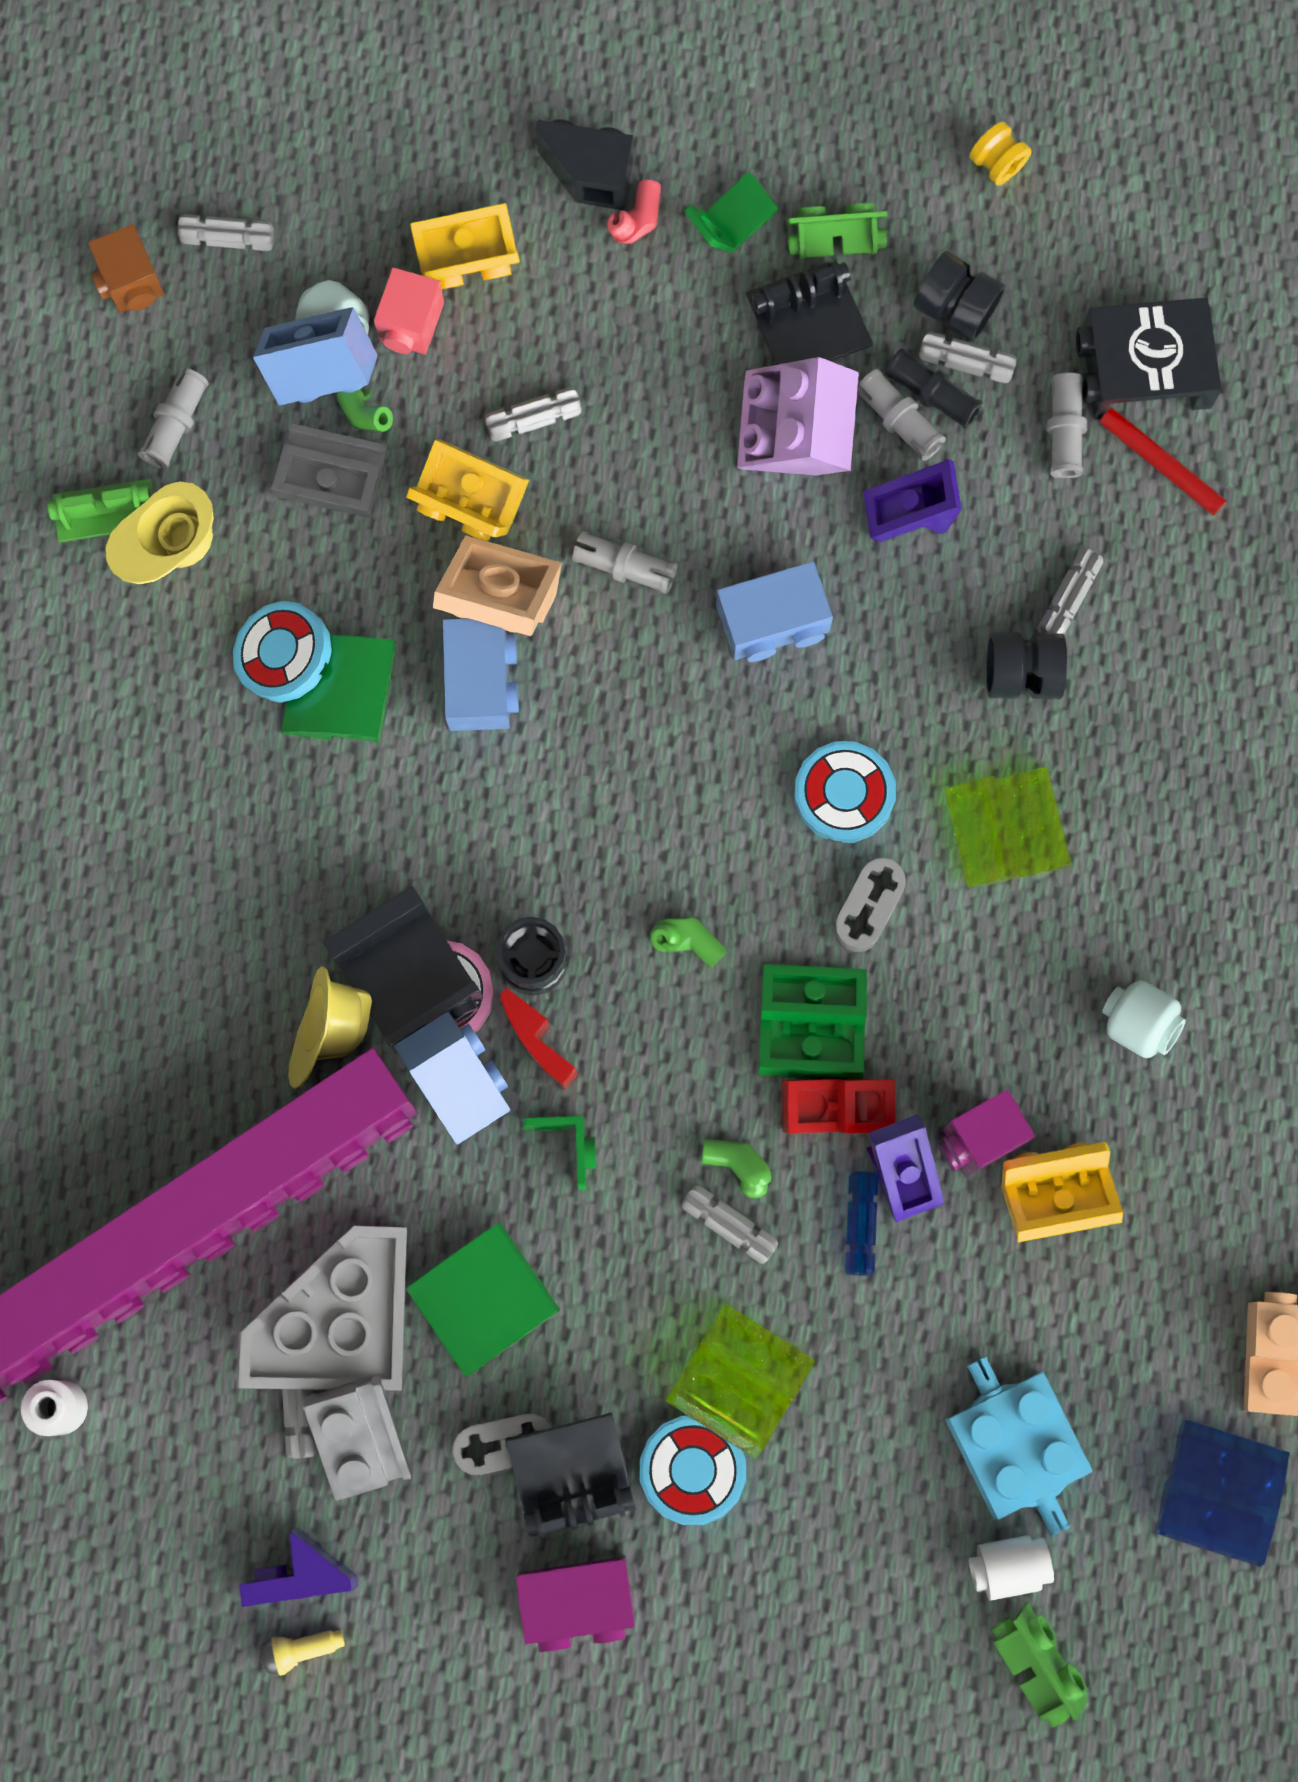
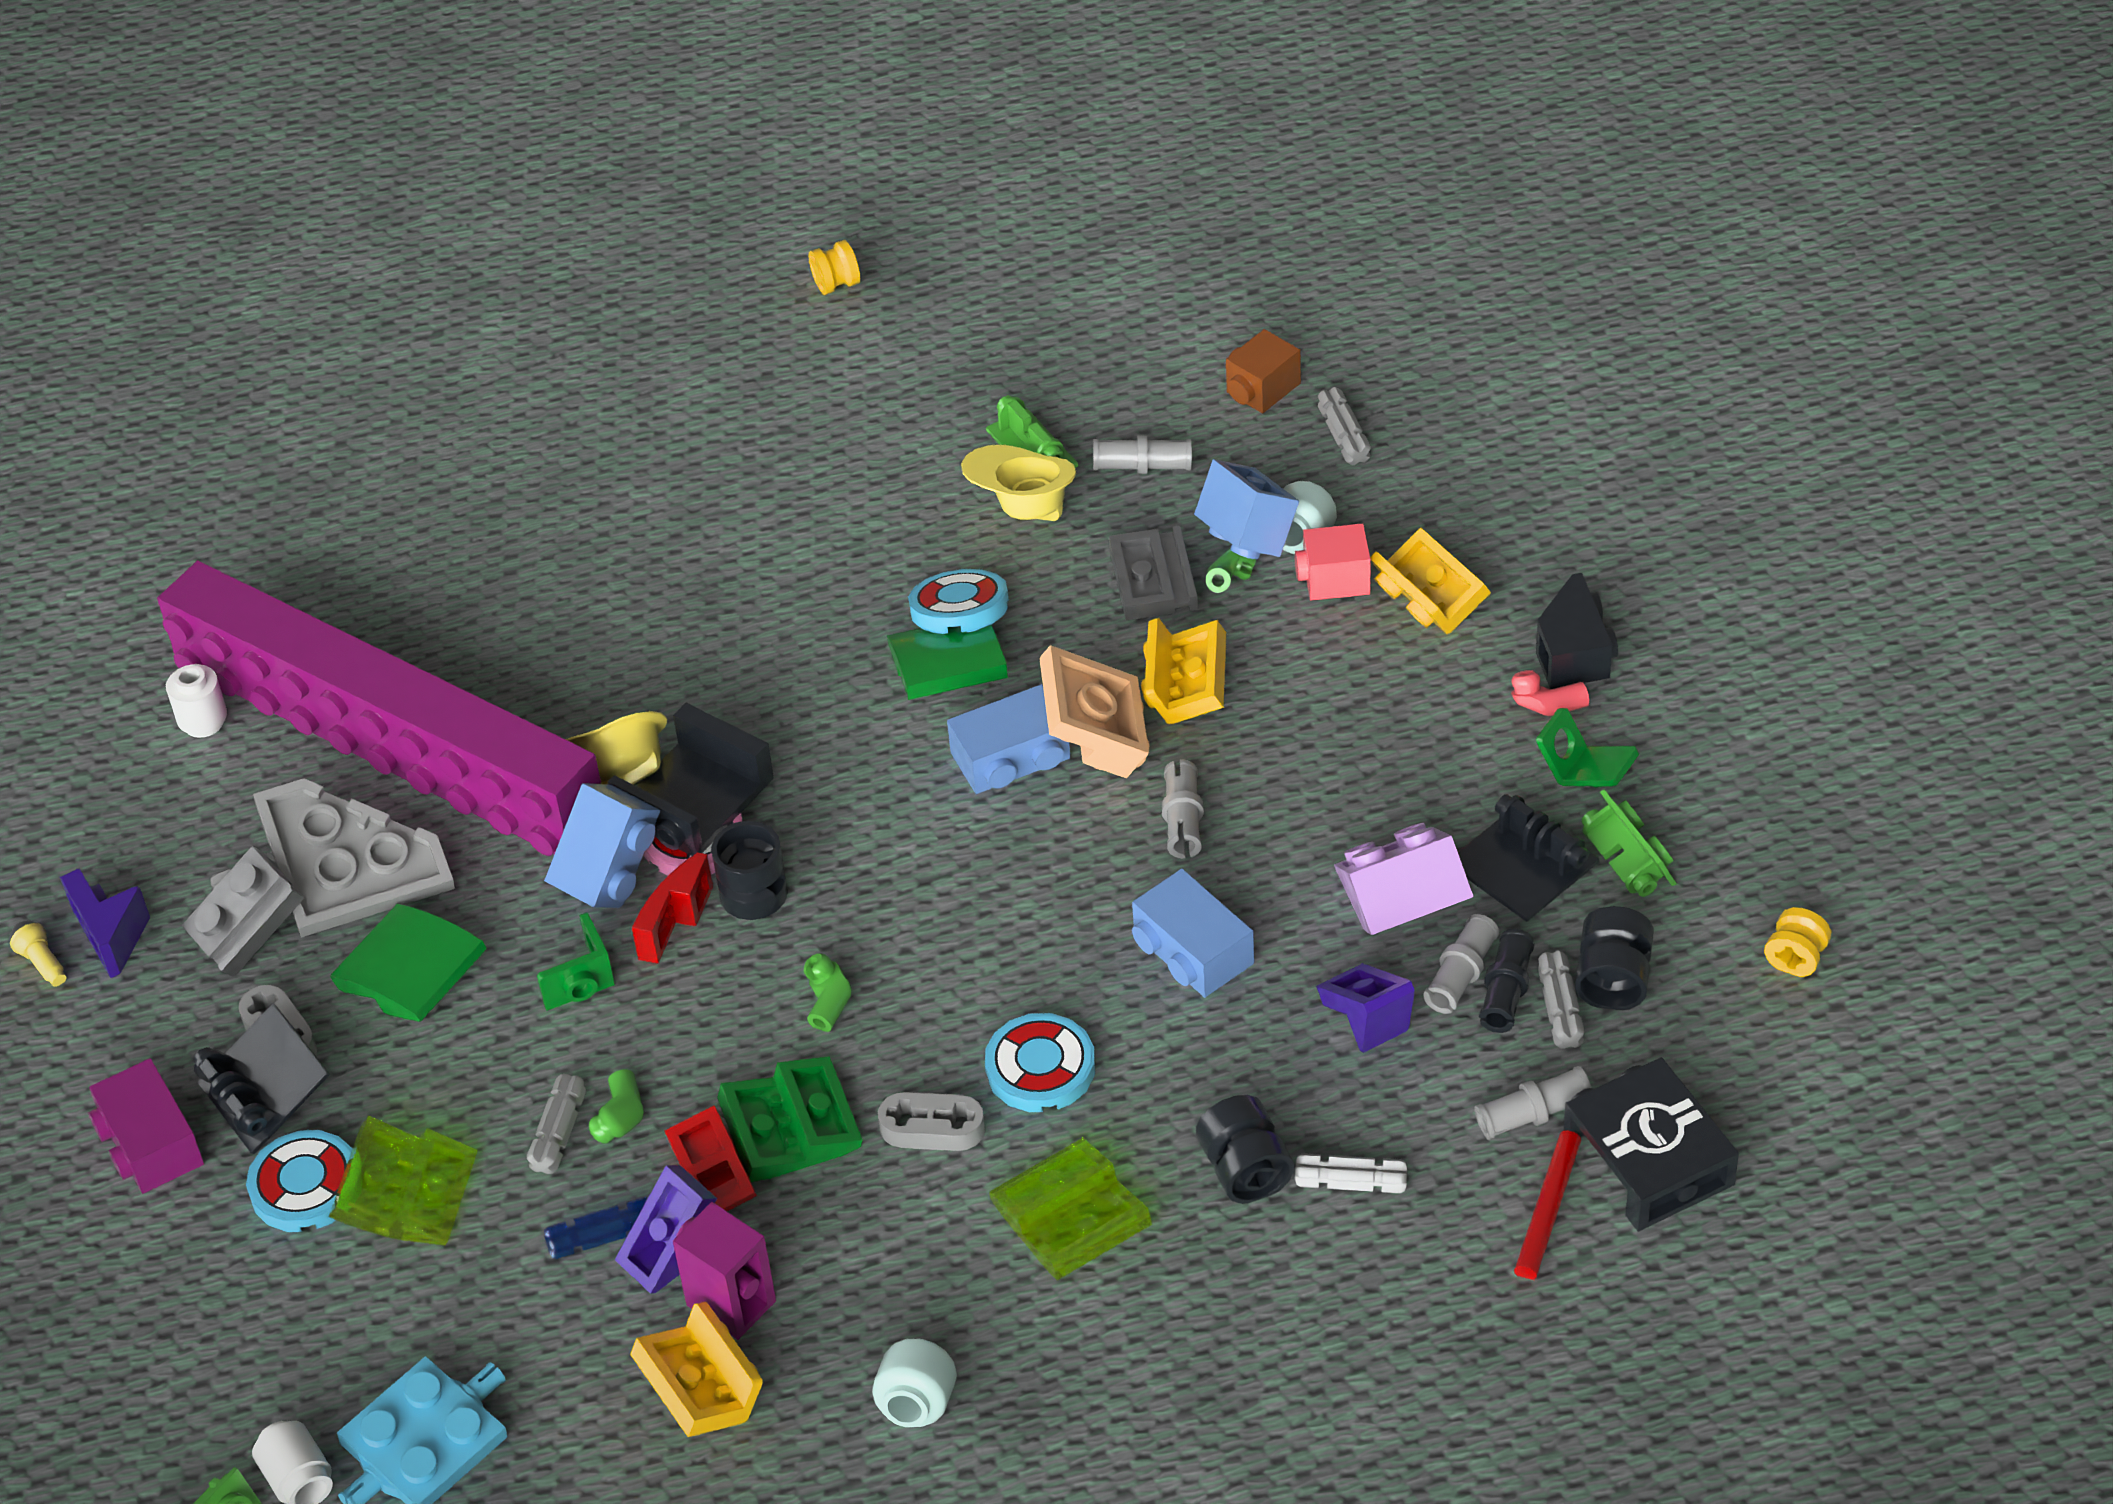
camera: 70 degrees right, 30 degrees down
(533, 414) = (1296, 694): axle -> none

